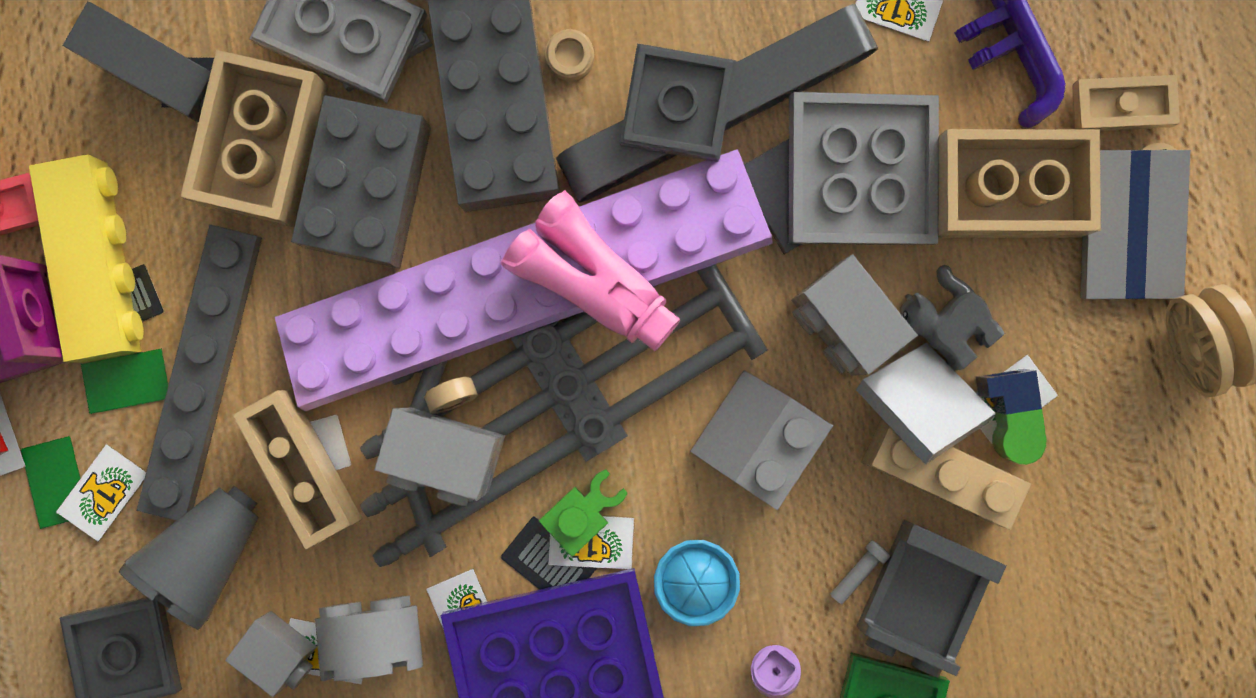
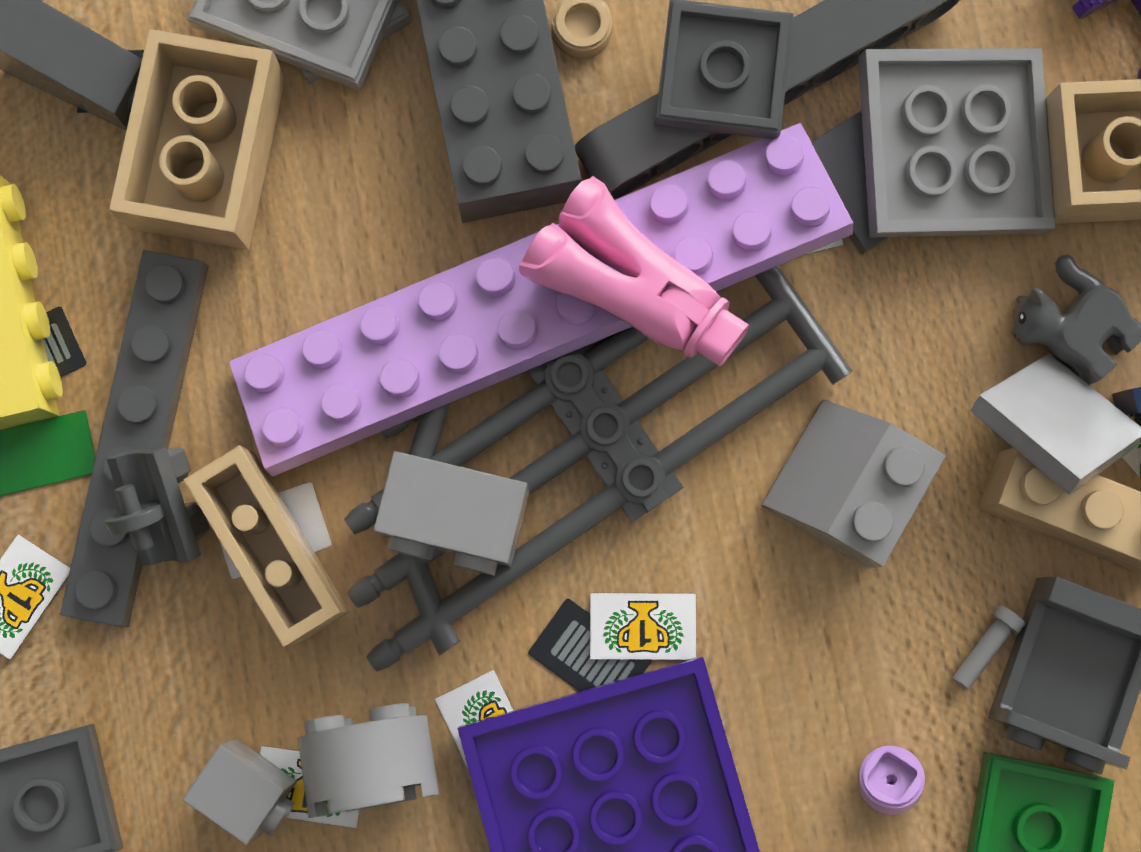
camera: 10 degrees left, 5 degrees down
(194, 556) = (139, 665): dark grey cone -> none
(208, 433) = (153, 505): none -> dark grey hips
(361, 181) = (333, 187): dark grey brick -> none
(450, 395) = (460, 441): tan tile -> none
(577, 517) = (625, 594): bright green plate -> none
(696, 583) = (783, 670): medium azure hat -> none
(852, 318) = (959, 321): light grey brick -> none

